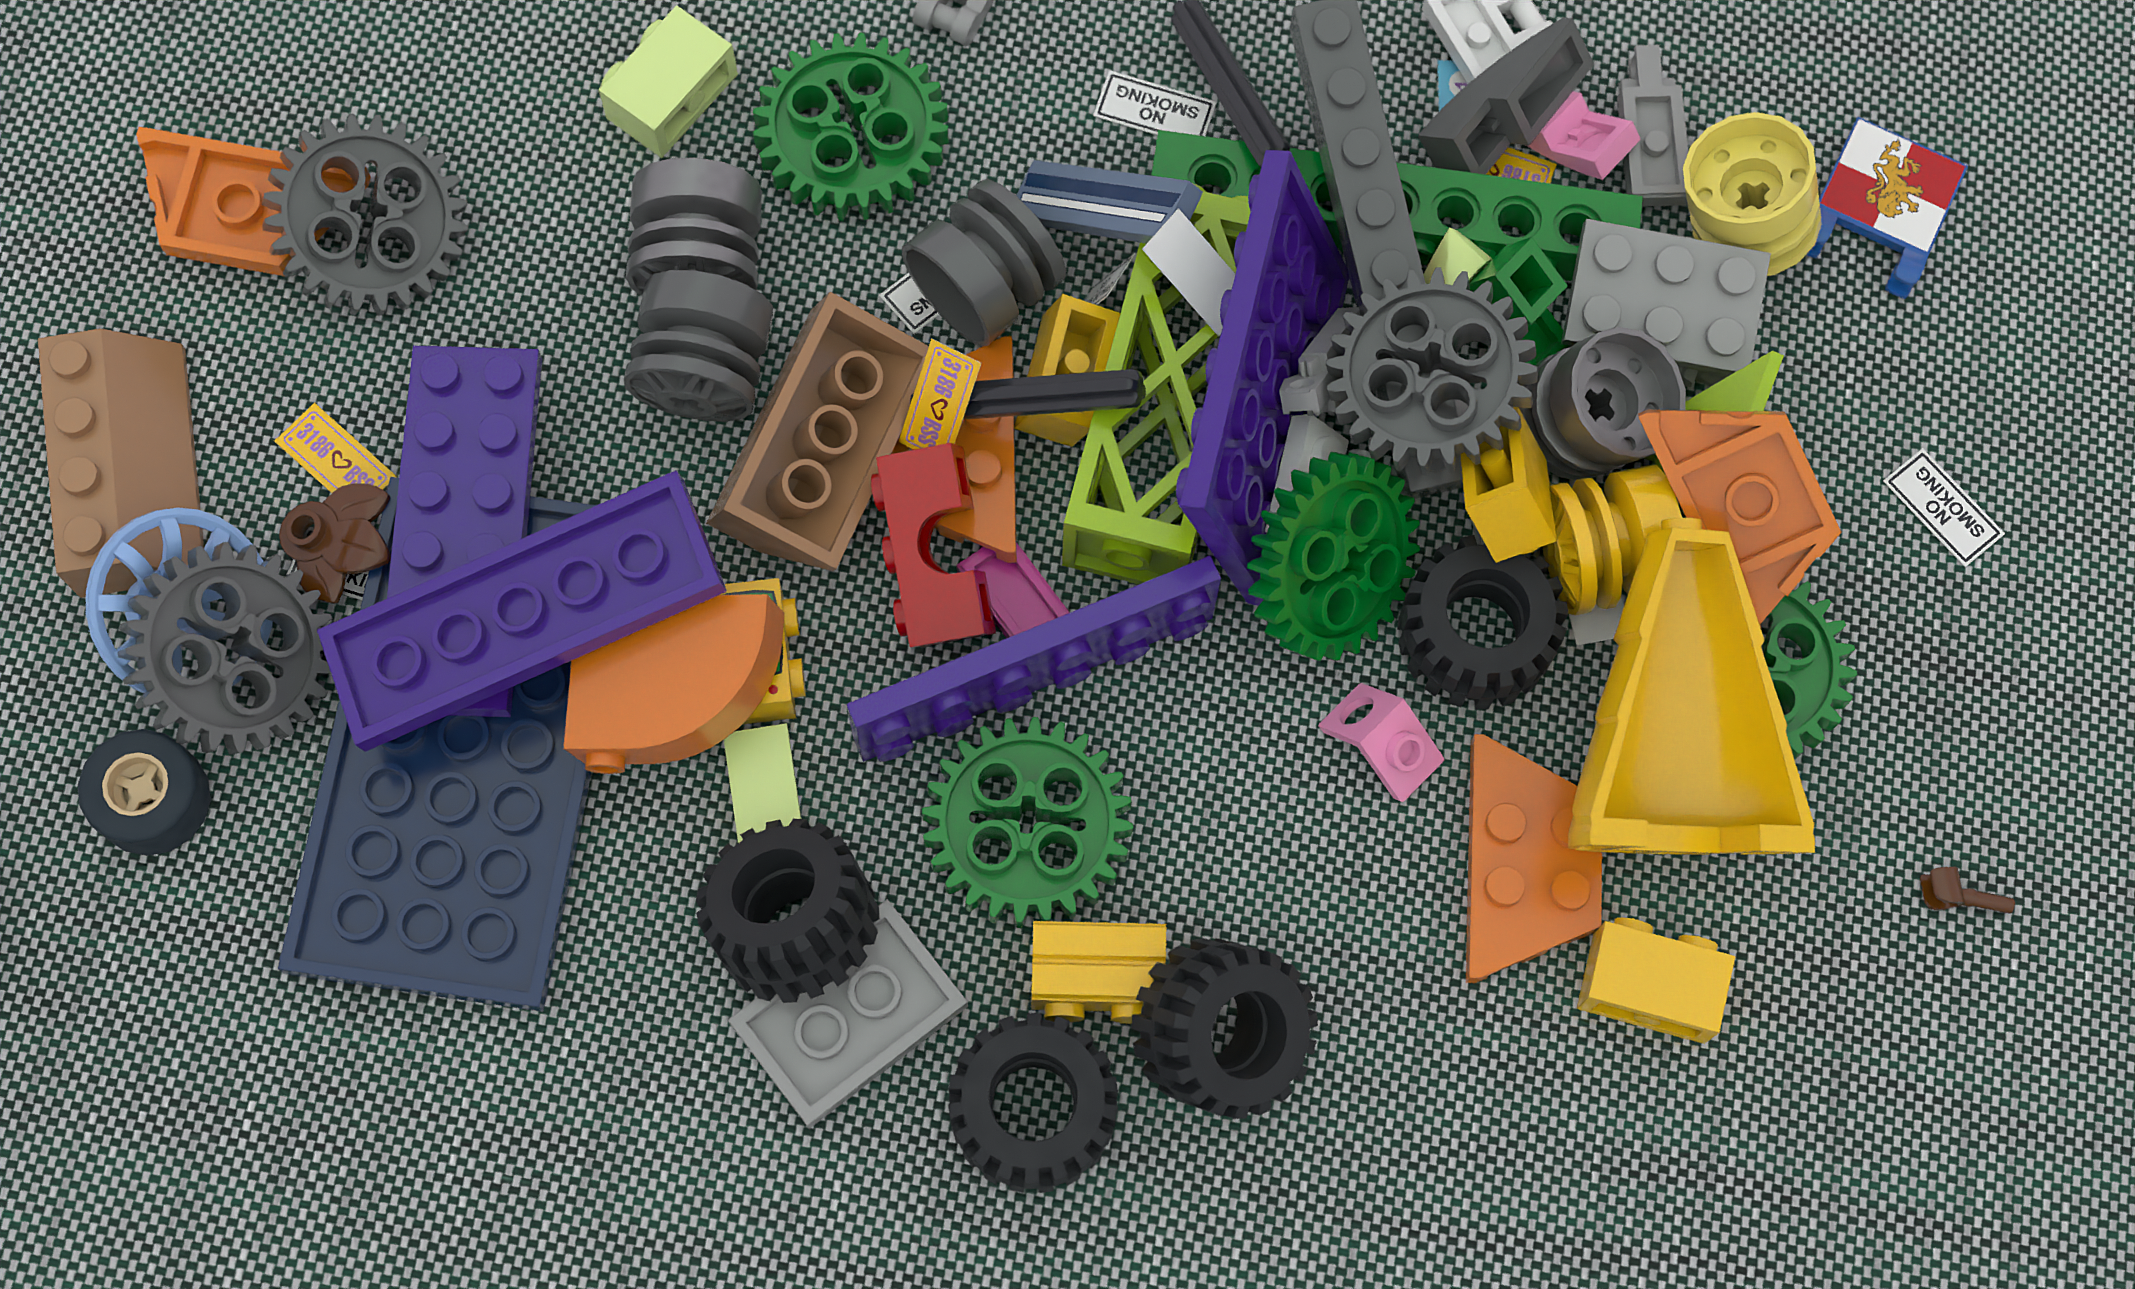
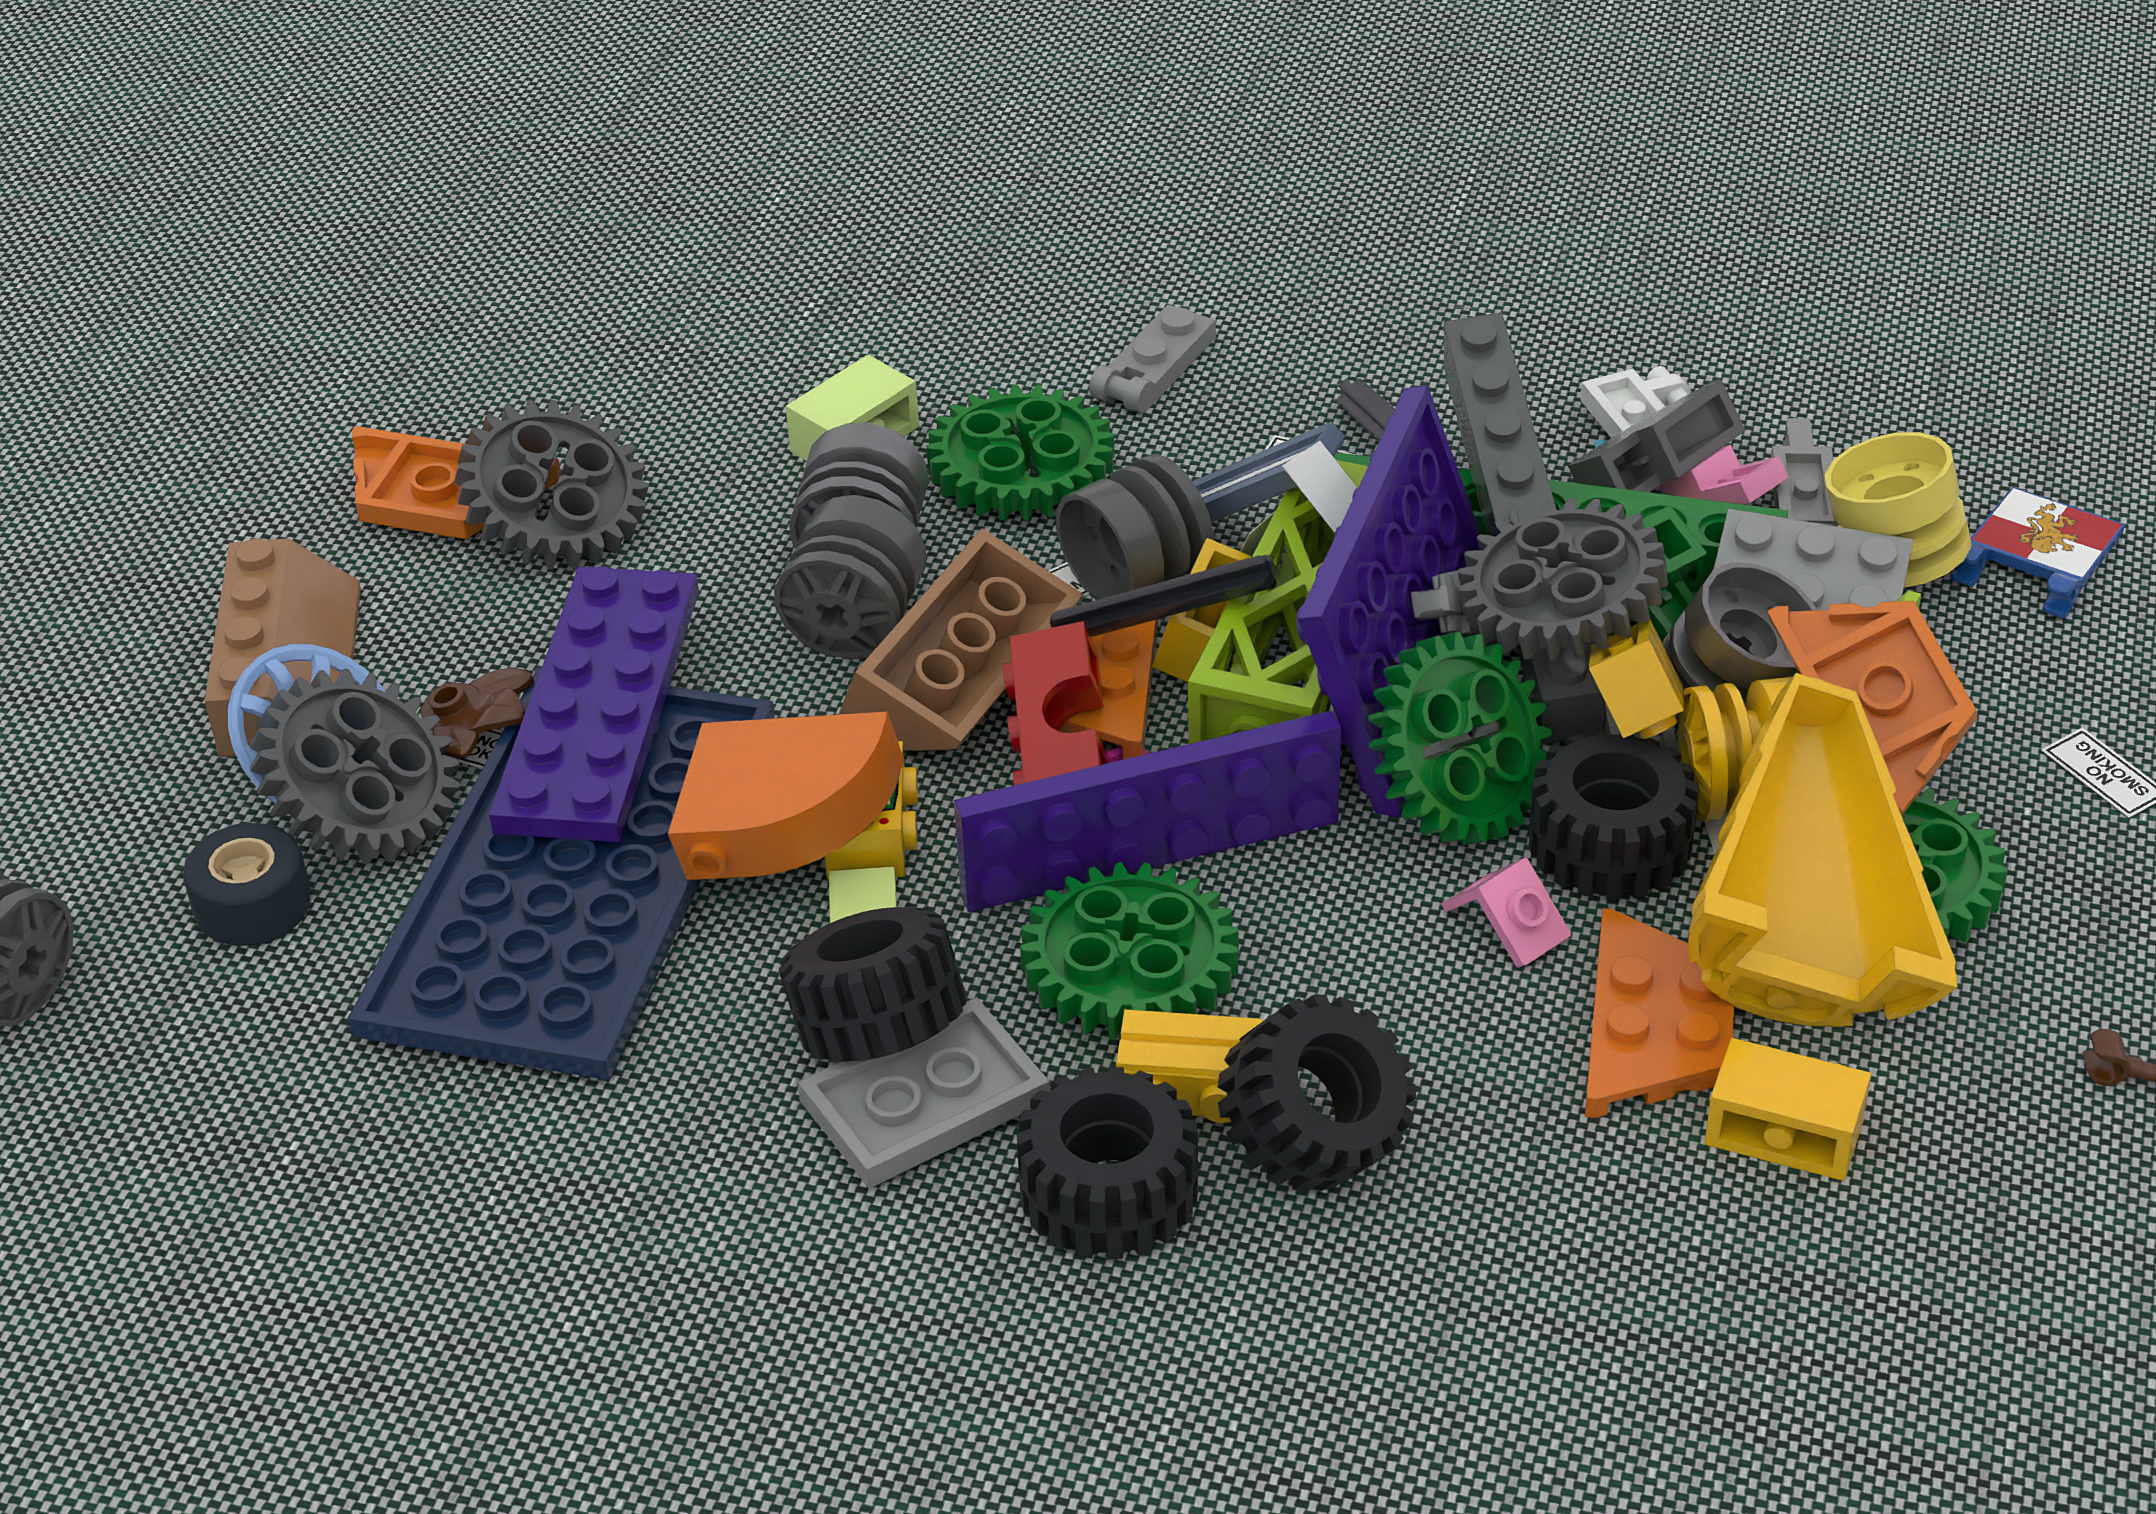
camera: 10 degrees right, 30 degrees down
(331, 452) = (473, 657): yellow sticker -> none
(520, 611) = (644, 722): dark purple plate -> none
(939, 397) = (1084, 591): yellow sticker -> none

